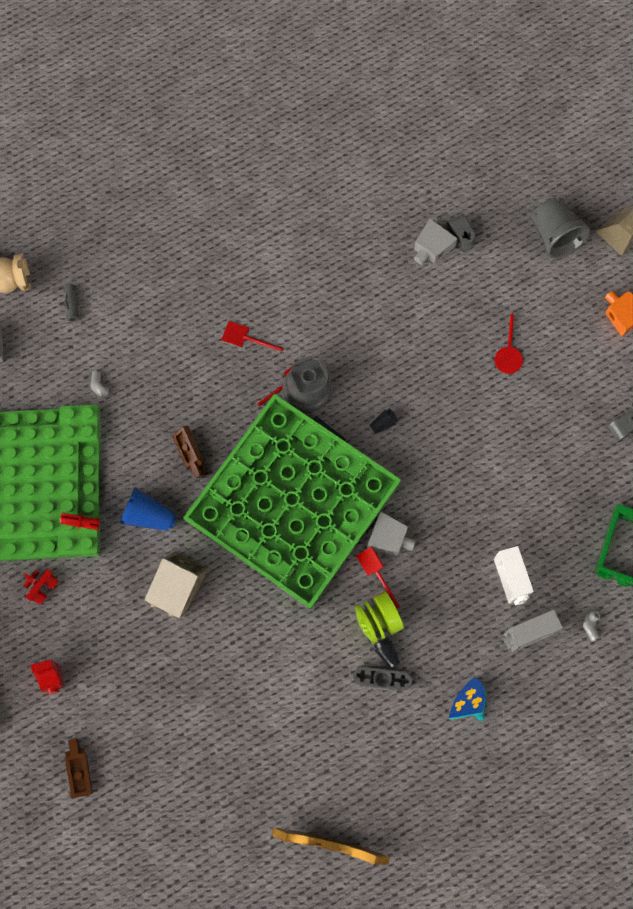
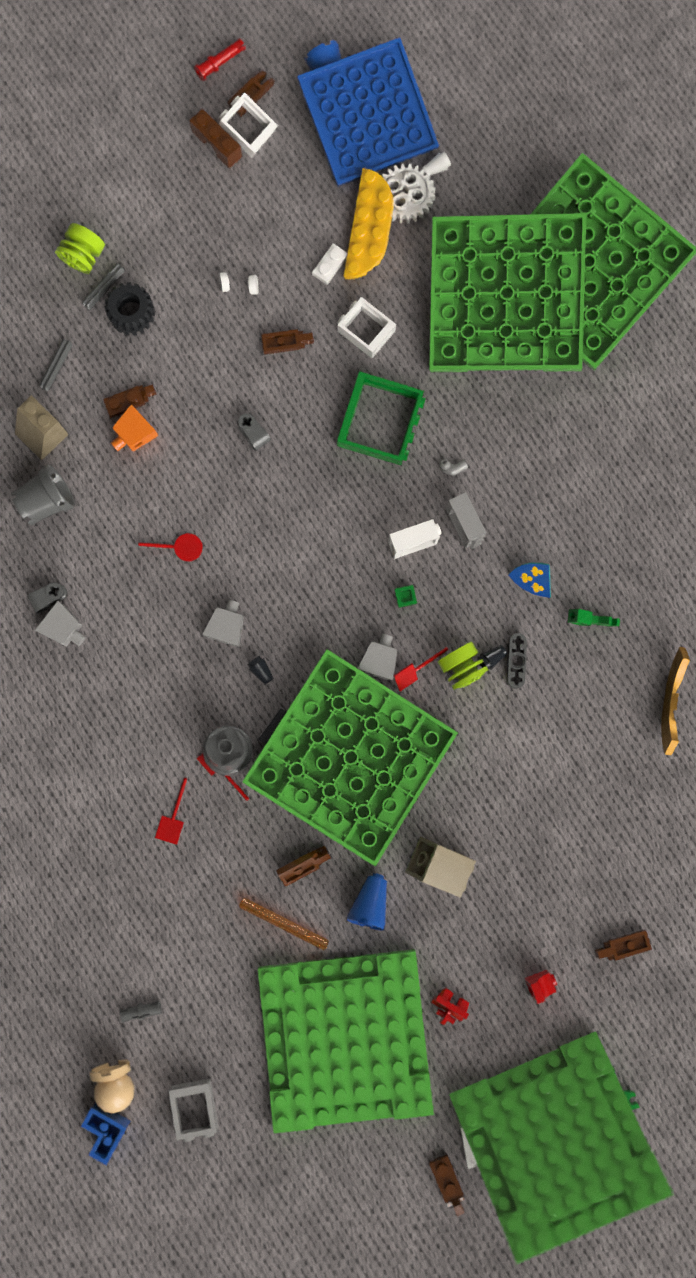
camera: 100 degrees left, 10 degrees up
(80, 521) = (386, 972): red axle -> none
(96, 386) = (235, 972): light grey arm -> none
(136, 433) = (284, 923): none -> clear orange axle
(424, 757) = (585, 618): none -> green piece
(429, 390) = (225, 625): none -> light grey torso
(453, 567) = (405, 596): none -> green plate

